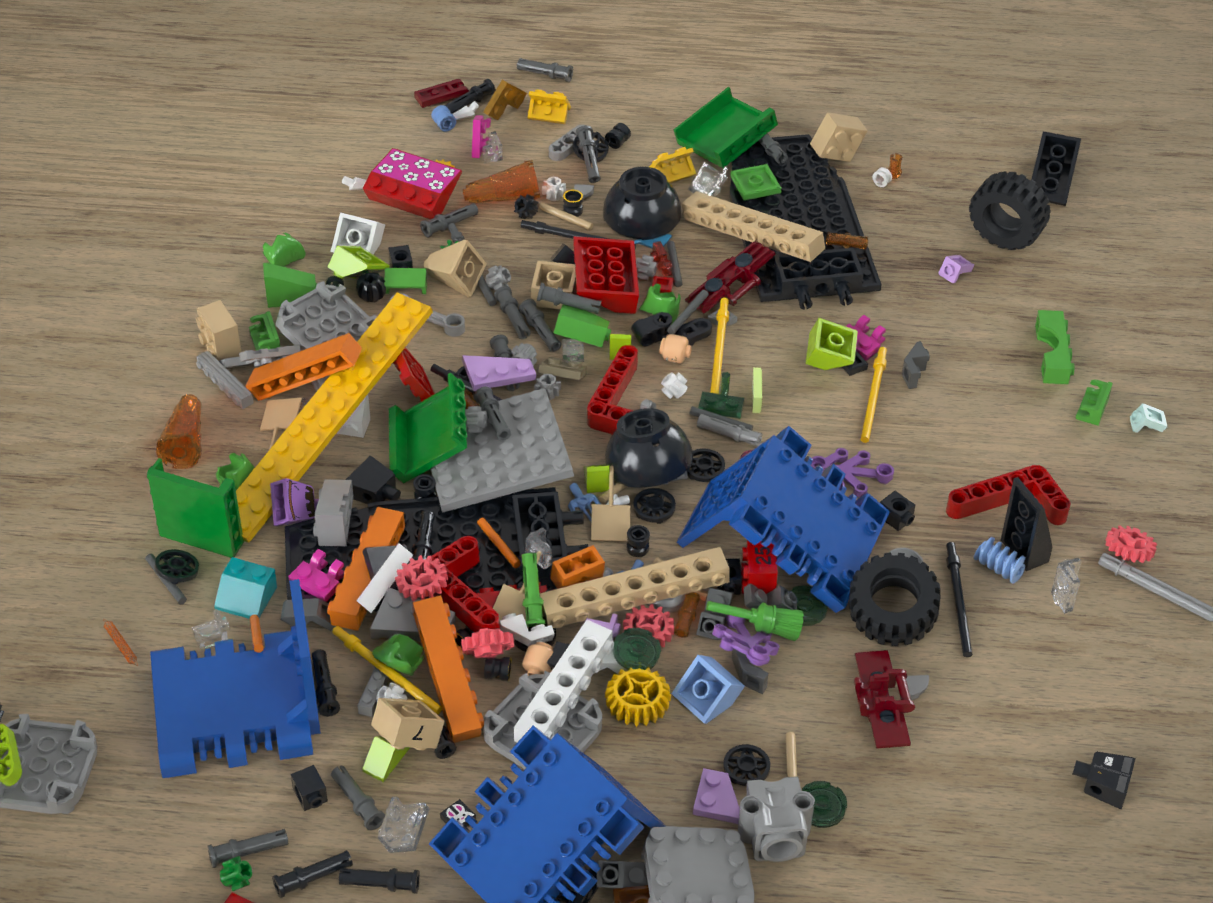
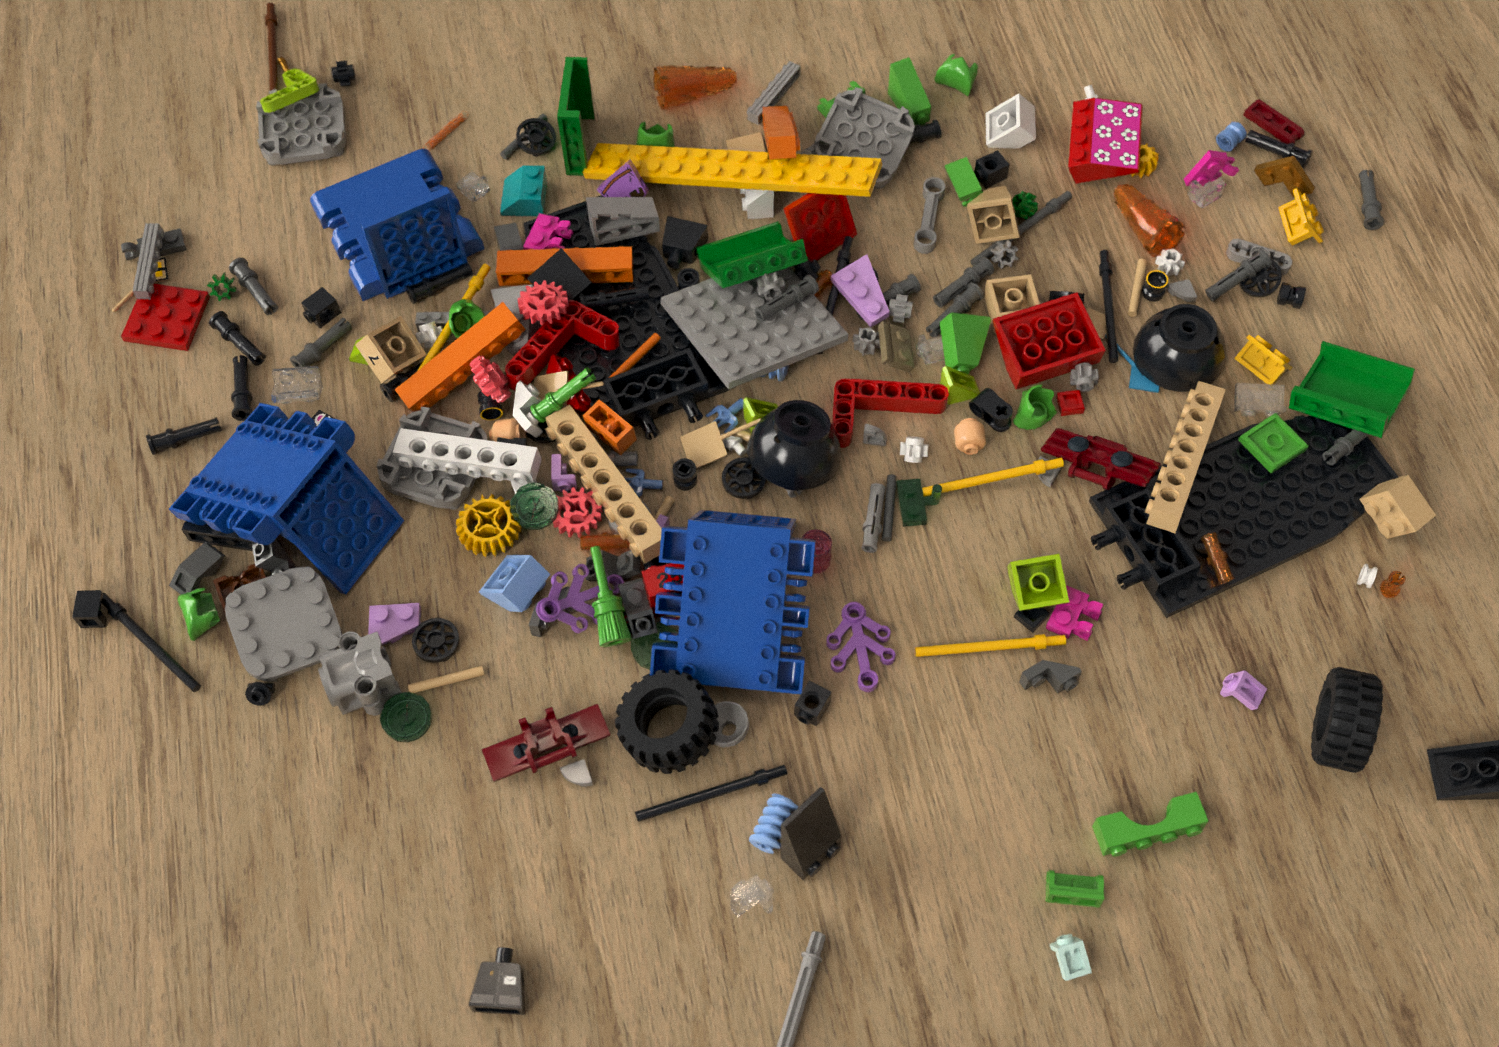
camera: 75 degrees right, 15 degrees up
(218, 331) = (820, 63): tan brick -> none
(256, 633) = (478, 213): orange bar -> none
(260, 357) = (796, 102): light grey wing -> none
(354, 262) = (961, 130): slope -> none
(371, 287) = (940, 155): black piece -> none
(384, 578) = (529, 275): white sticker -> none
(441, 222) = (1068, 183): dark grey pin -> none
(466, 112) = (1256, 153): white bar -> none
(526, 206) = (1126, 246): black gear -> none
(537, 542) = (616, 382): clear bracket -> none
(559, 297) = (983, 307): dark grey pin -> none
(660, 256) = (1108, 386): clear red plate -> none
(675, 264) = (1110, 405): dark grey bar -> none
(687, 312) = (1025, 431): dark grey bar -> none
(699, 328) = (1015, 453): black plate -> none
(706, 465) = (816, 508): black wheel -> none
(757, 390) = (941, 528): yellowish green tile -> none
(997, 490) = (883, 814): red beam -> none
(1131, 544) = (855, 954): coral gear -> none

